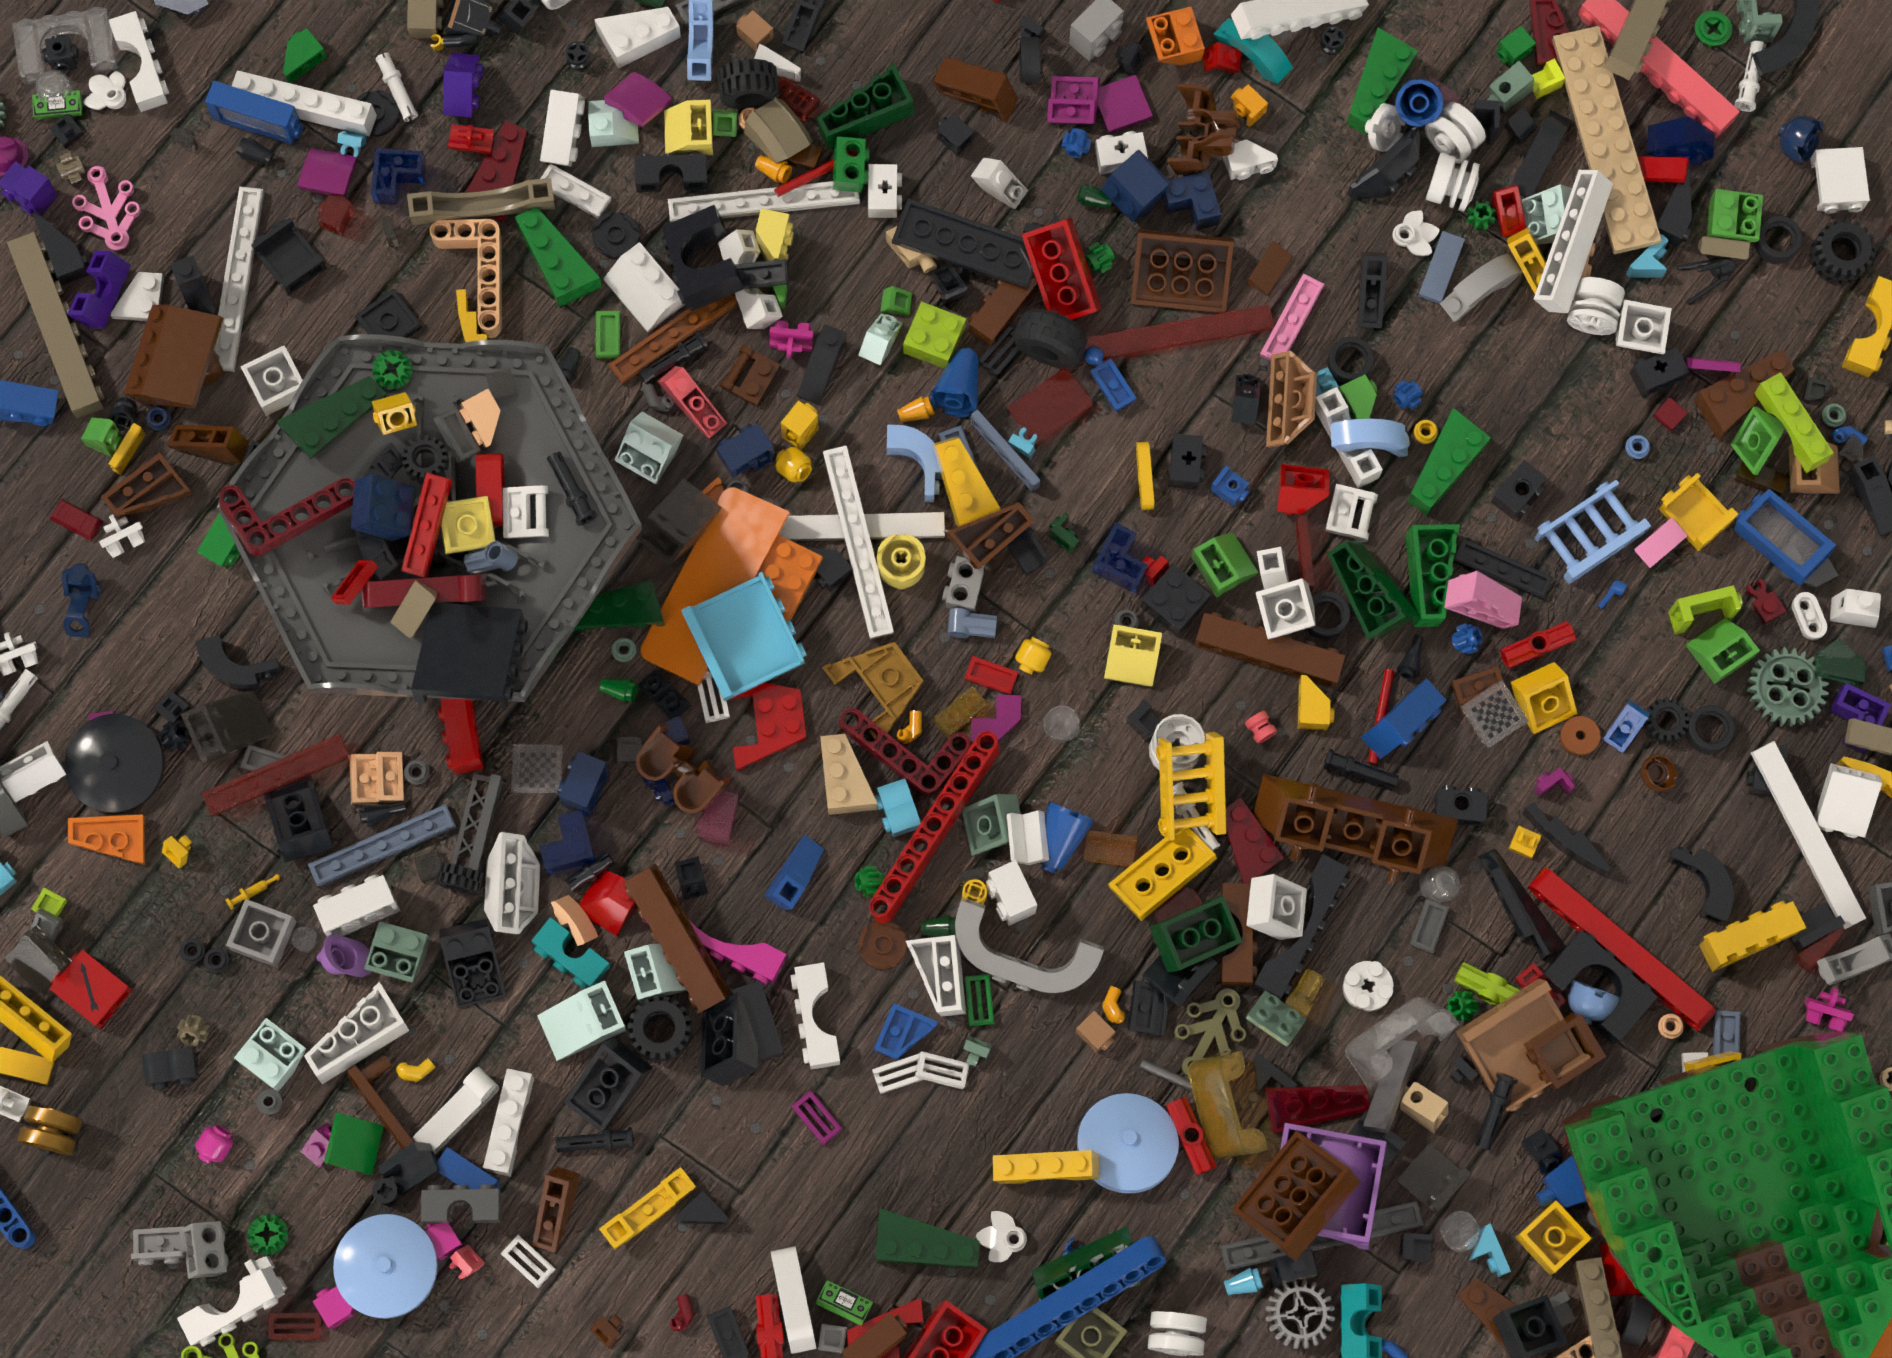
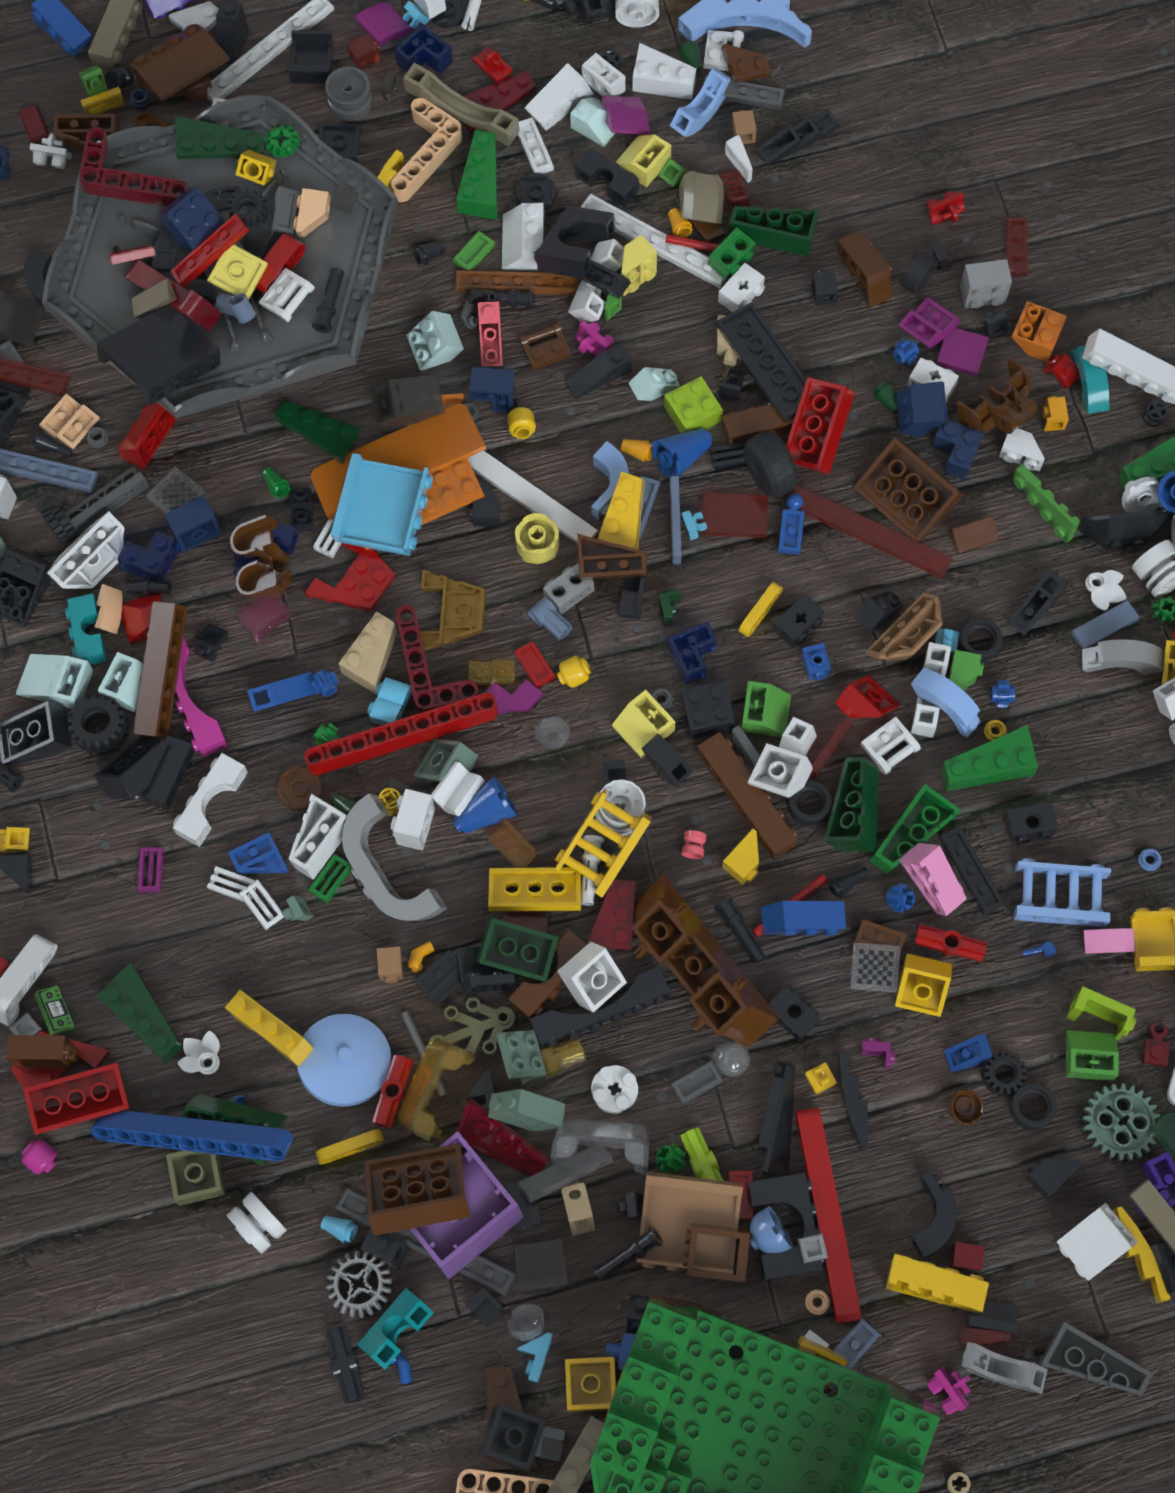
camera: 45 degrees right, 5 degrees down
(360, 267) = (349, 93): none -> dark grey wheel
(460, 83) = (514, 23): dark purple brick -> none
(586, 77) = (603, 76): none -> white brick
(623, 642) = (297, 456): sand green plate -> none
(661, 370) = (482, 295): none -> black arm
(748, 83) = (706, 152): black tyre -> none
(800, 425) = (547, 398): yellow brick -> none
(826, 834) = (325, 683): none -> blue gear
(858, 542) = (518, 504): white plate -> none
(896, 301) = (688, 369): bright green slope -> none
(913, 730) = (447, 660): light orange arm -> none
(999, 182) = (828, 340): white slope -> none
(1099, 257) = (856, 439): green gear -> none
(1155, 569) = (712, 675): red tile -> none
(1182, 673) = (666, 761): none -> black slope
(1194, 1210) = (349, 1146): none -> yellow beam
(1235, 609) = (745, 746): none -> dark grey tile
(1293, 316) = (965, 580): bright pink tile -> none
(1308, 194) = (1050, 511): none -> bright green wing
(1320, 1060) = (526, 1110): none -> sand green brick
(1582, 725) = (936, 1027): dark orange piece -> none
(1637, 985) = (812, 1248): none -> light grey tile
(1757, 894) = (967, 1256): none -> dark red panel
(1807, 834) = (1043, 1244): white tile -> none

